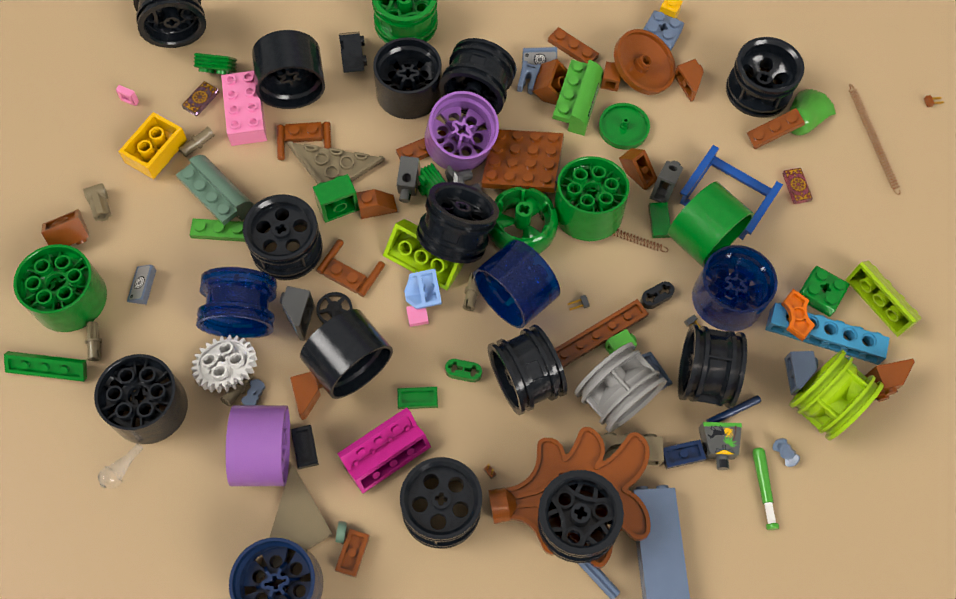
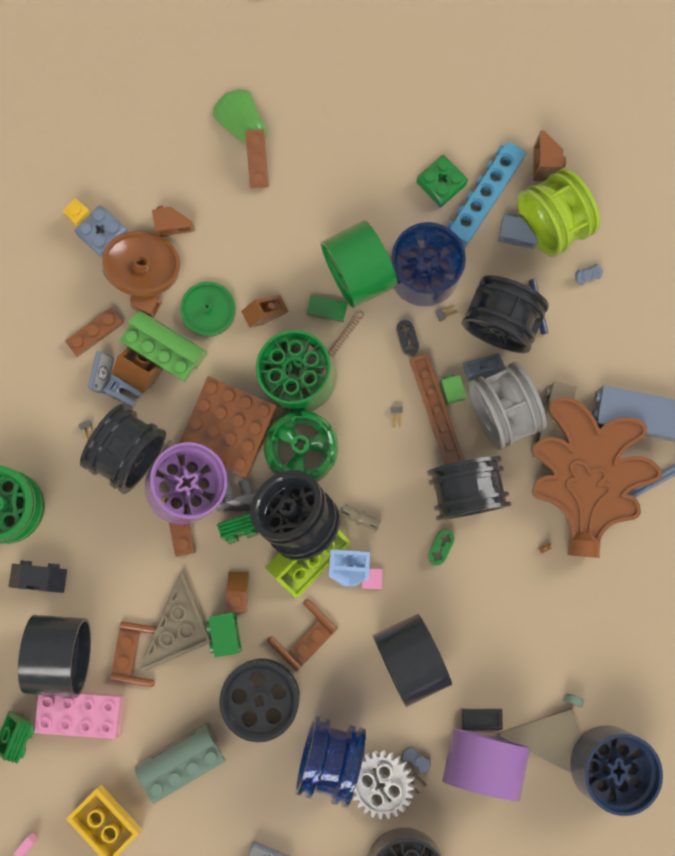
camera: 75 degrees left, 15 degrees up
(196, 141) = (108, 774): dark tan pin -> none
(200, 98) = (50, 761): tile -> none
(216, 230) = (221, 775): bright green plate -> none
(298, 308) = (345, 700): dark grey slope -> none
(306, 392) = (431, 709): dark orange slope -> none
(333, 307) = (344, 661): black wheel -> none
(352, 553) = (594, 693): dark orange plate -> none
(384, 450) = (508, 643): dark pink brick -> none
(407, 56) = (66, 519): black wheel -> none
(408, 178) = (211, 550): dark grey torso -> none
(417, 397) = (458, 598): green tile -> none
(456, 528) = (604, 593): black wheel -> none
(517, 283) = (376, 473): clear blue wheel -> none
(603, 496) = (626, 480): black wheel -> none
(670, 173) = (289, 287): dark grey torso -> none
(683, 454) = (570, 366): dark blue plate -> none
(711, 159) = (341, 203): blue piece -> none
(721, 442) = (567, 328): dark grey torso -> none
(759, 94) = (185, 123): black wheel -> none
(765, 487) = (604, 302): bright green piece -> none
(797, 186) = (322, 161): tile -> none
(799, 322) = (457, 213): orange tile -> none
(874, 139) = (289, 65): piece -> none
(883, 298) = (465, 128): lime slope -> none

